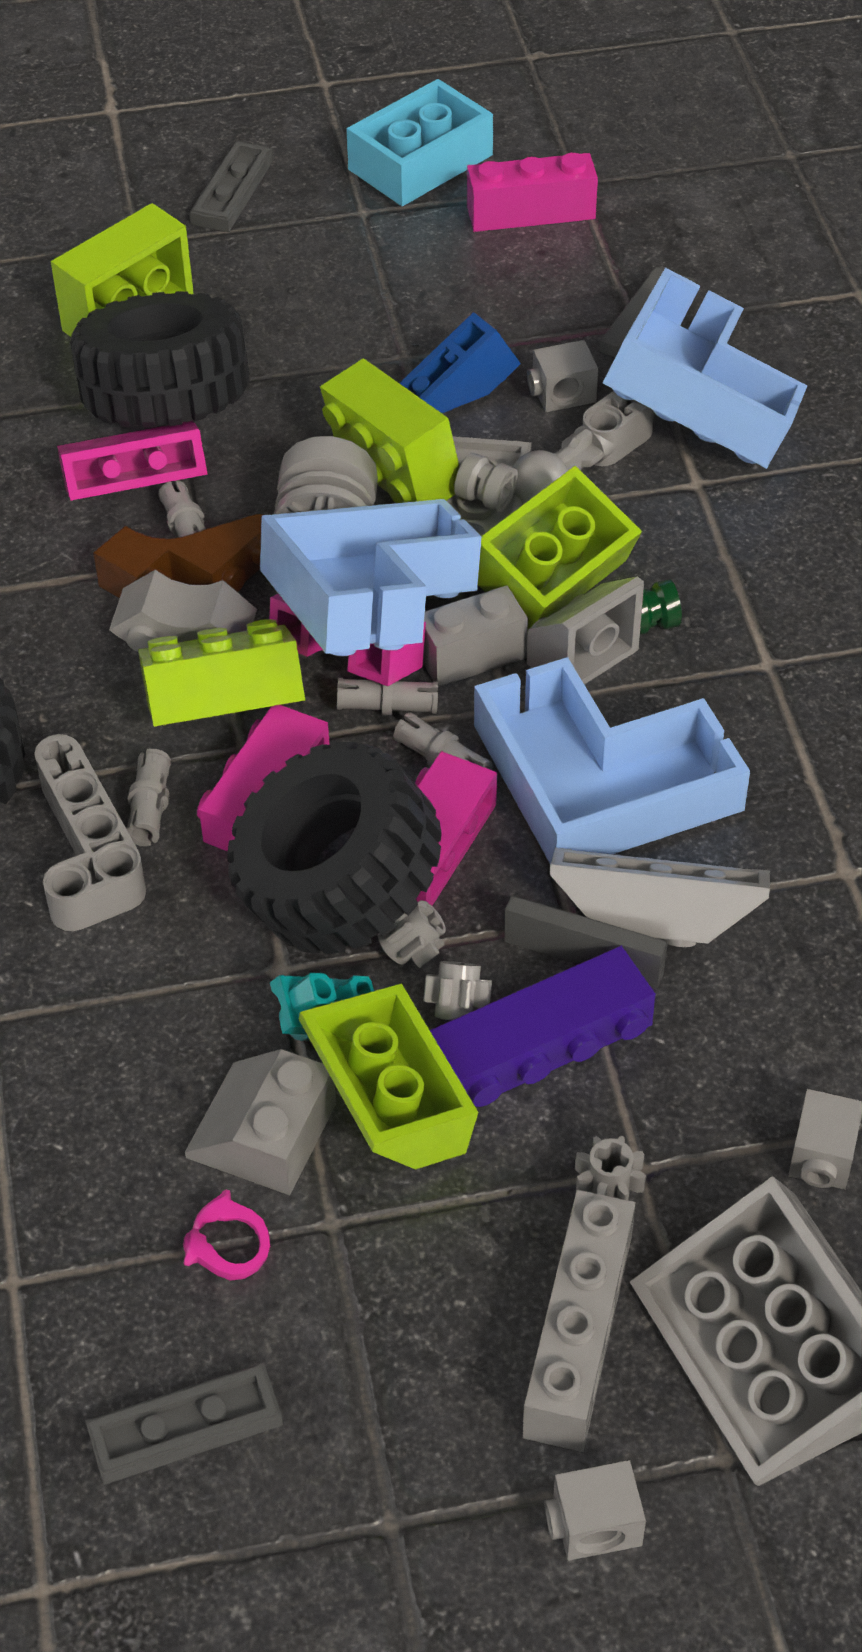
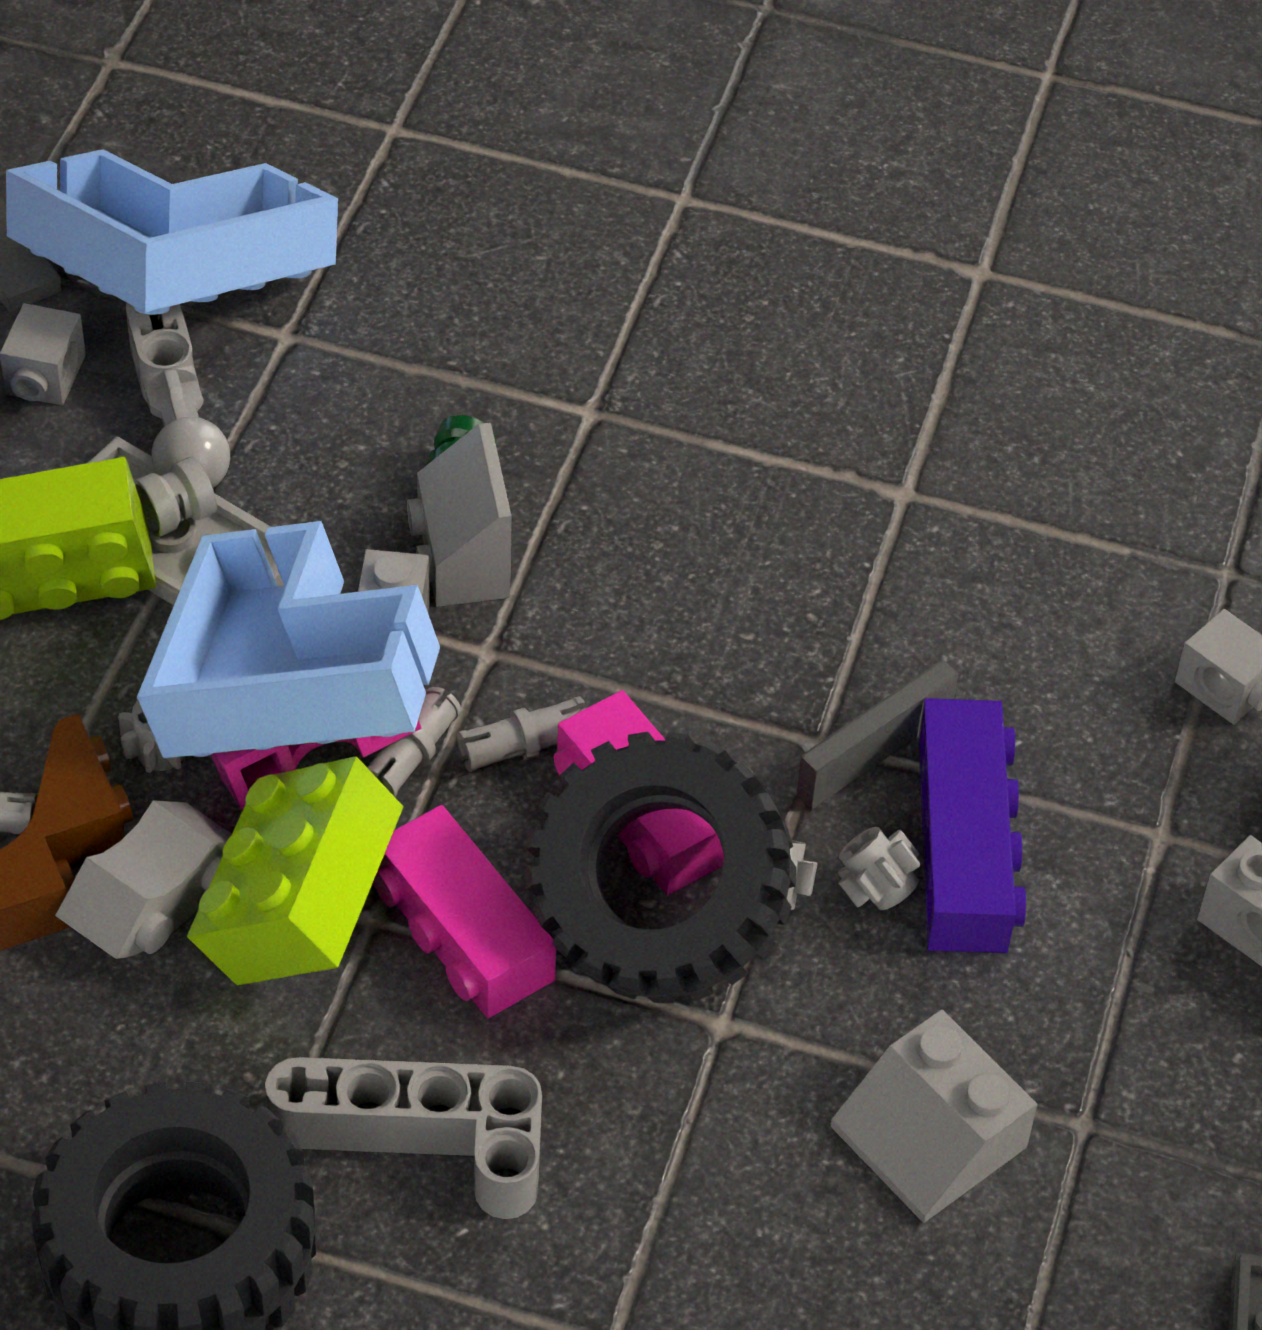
camera: 65 degrees left, 0 degrees up
(148, 797) = (396, 1033): light grey pin -> none
(201, 1252) = (1058, 1252): dark pink piece -> none
(309, 992) = (831, 994): teal hips -> none
(325, 476) = (81, 648): light grey wheel -> none
(393, 1076) = (976, 957): lime slope -> none
(556, 546) = (337, 467): lime brick -> none
(599, 783) = (663, 629): light blue piece -> none
(610, 1169) = (1173, 851): light grey gear -> none
(657, 896) = (870, 631): light grey wedge -> none

